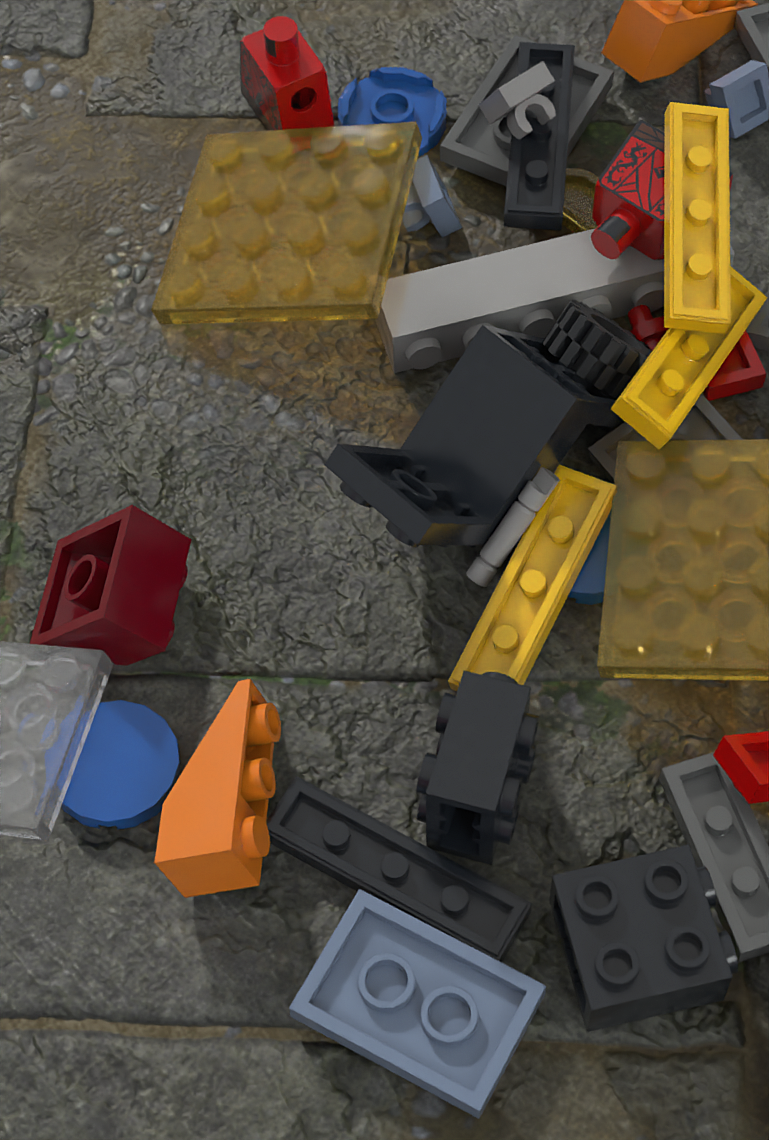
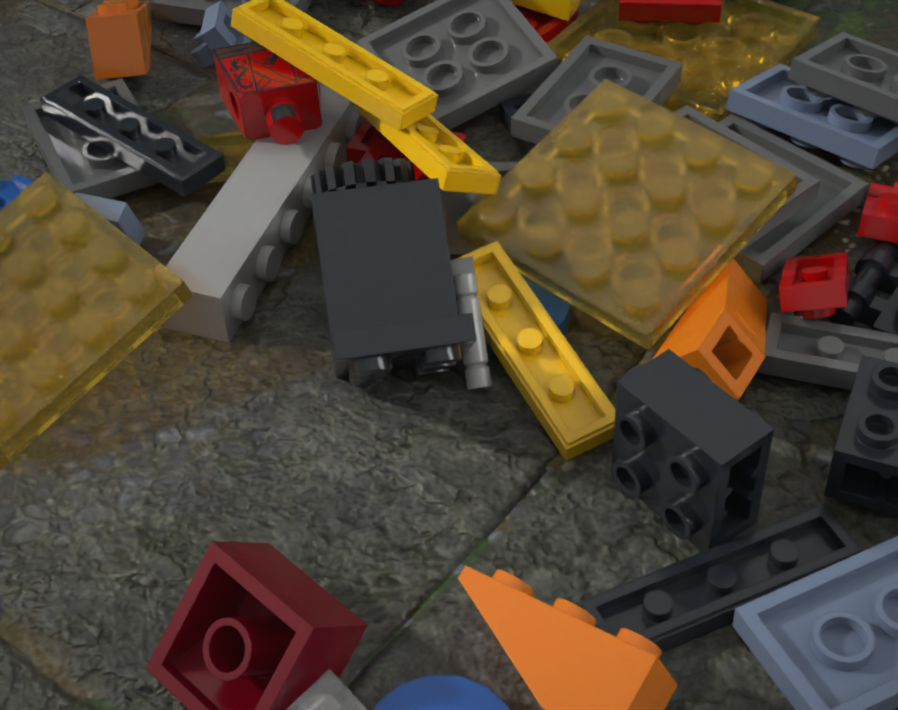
camera: 55 degrees left, 15 degrees down
(521, 95) = (104, 110): light grey tile -> none
(655, 721) = (723, 331): none -> orange slope

